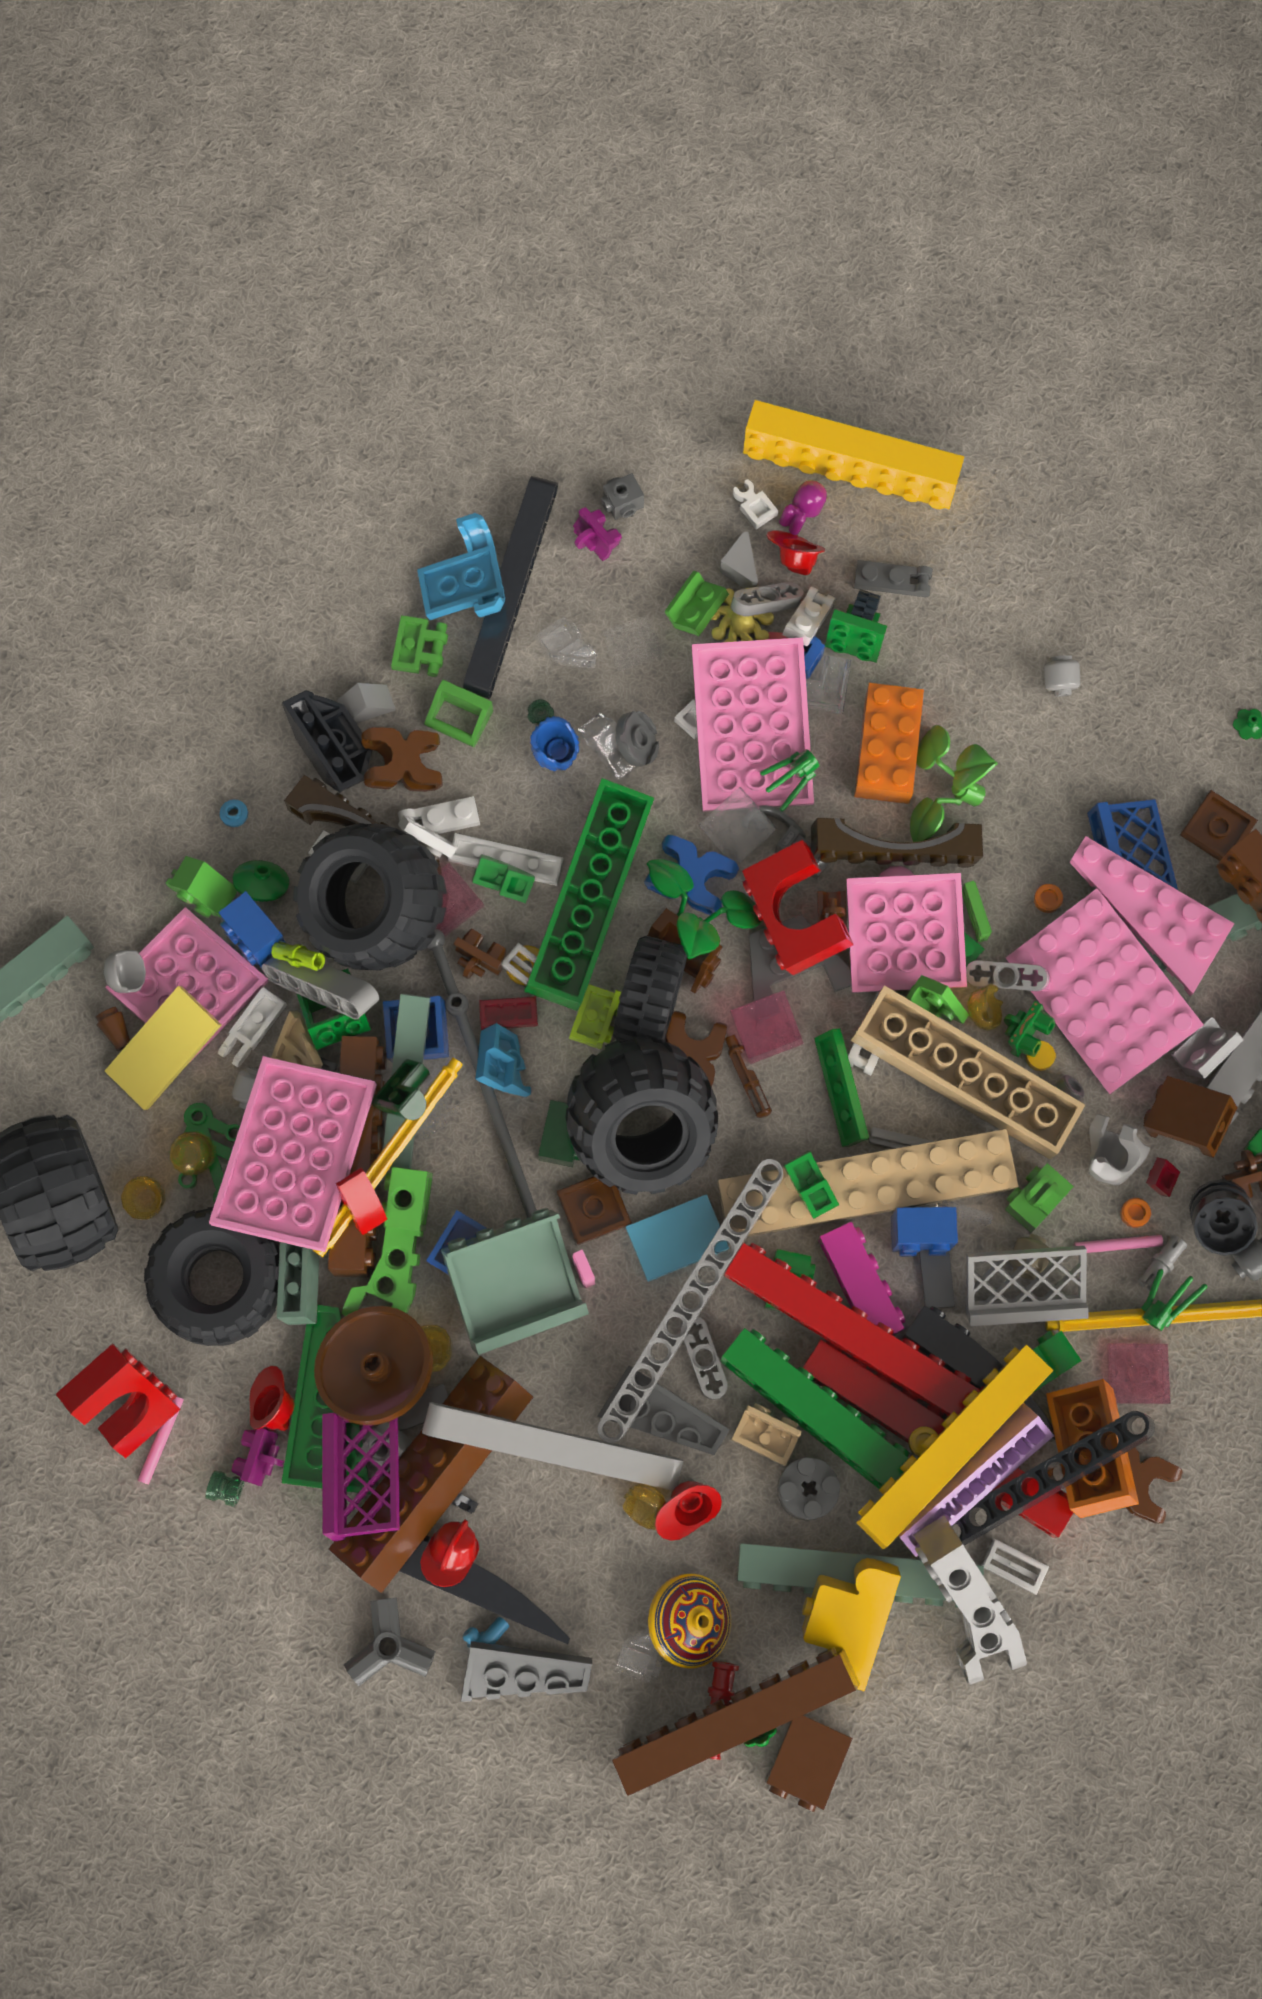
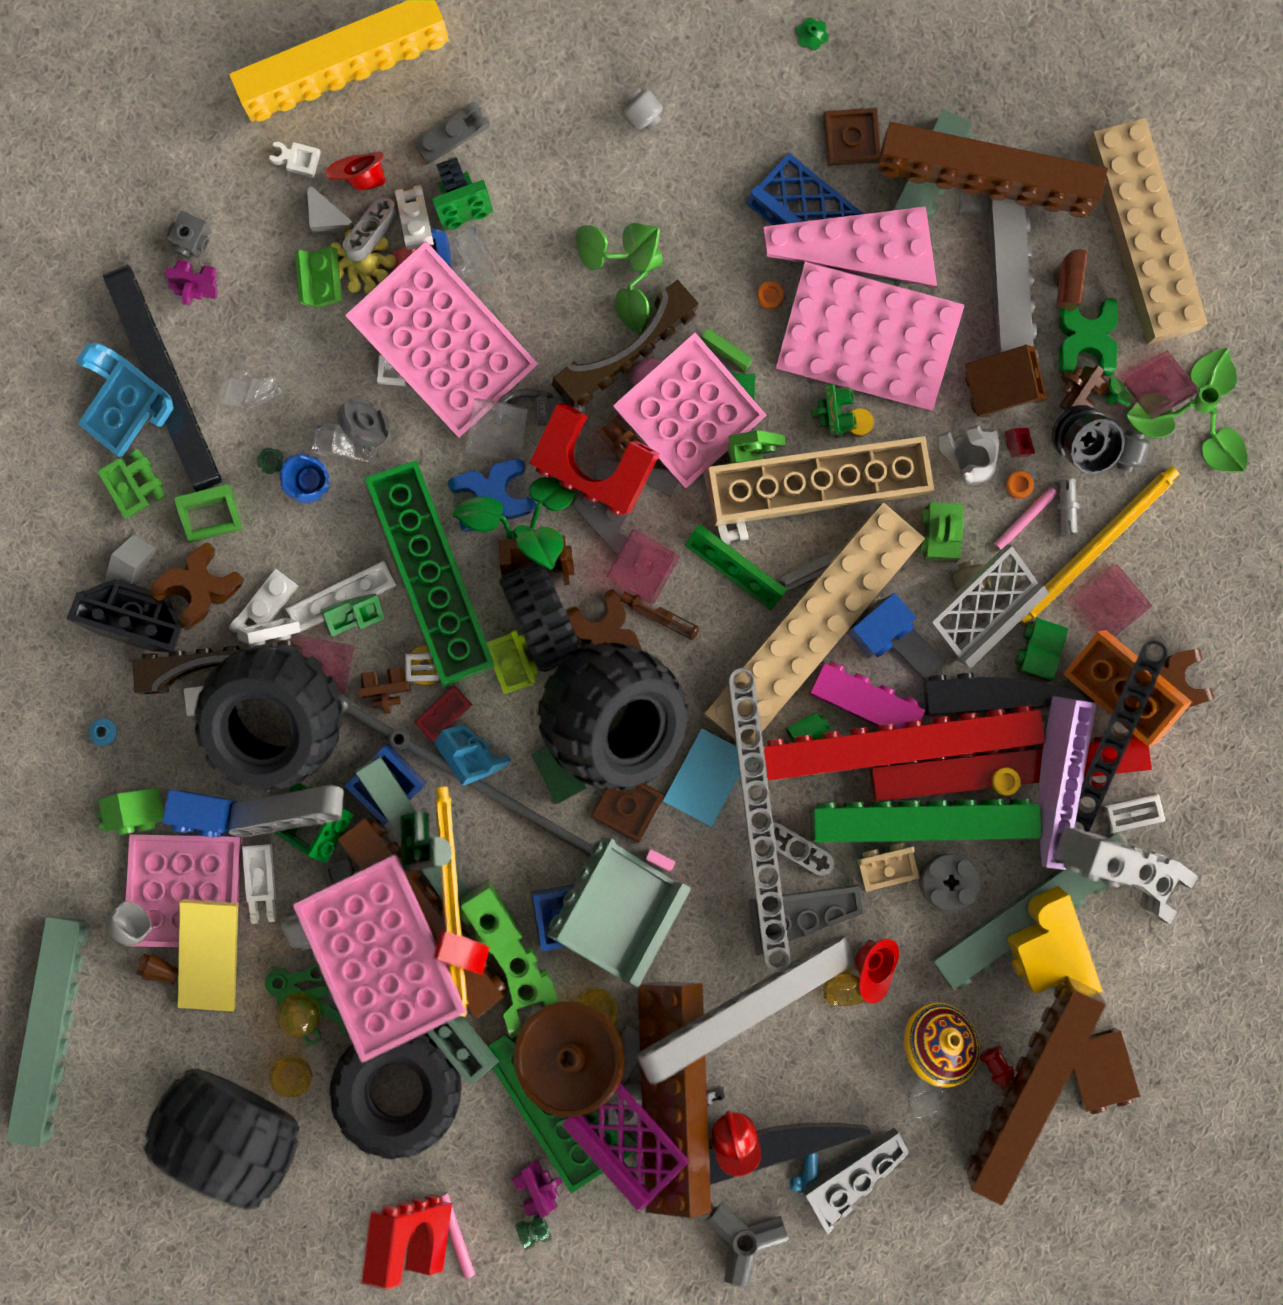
camera: 40 degrees left, 10 degrees up
(261, 880) = (176, 773): green dish -> none
(270, 1401) = (512, 1144): red piece -> none
(296, 1043) = (308, 874): tan wing -> none
(298, 955) = (251, 805): lime pin -> none
(803, 765) = (507, 342): green plant -> none
(806, 503) = (336, 125): magenta piece -> none
(811, 1184) = (776, 662): green slope -> none
(889, 743) = (556, 269): orange brick -> none
(954, 1446) = (1034, 770): yellow brick -> none
(985, 1008) = (792, 420): clear yellow hair -> none
(1028, 970) = (810, 378): light grey beam -> none
(1071, 1087) = (901, 430): flat silver tile -> none
(1160, 1314) = (1097, 548): green plant -> none
(1205, 1049) = (978, 319): light grey bracket -> none

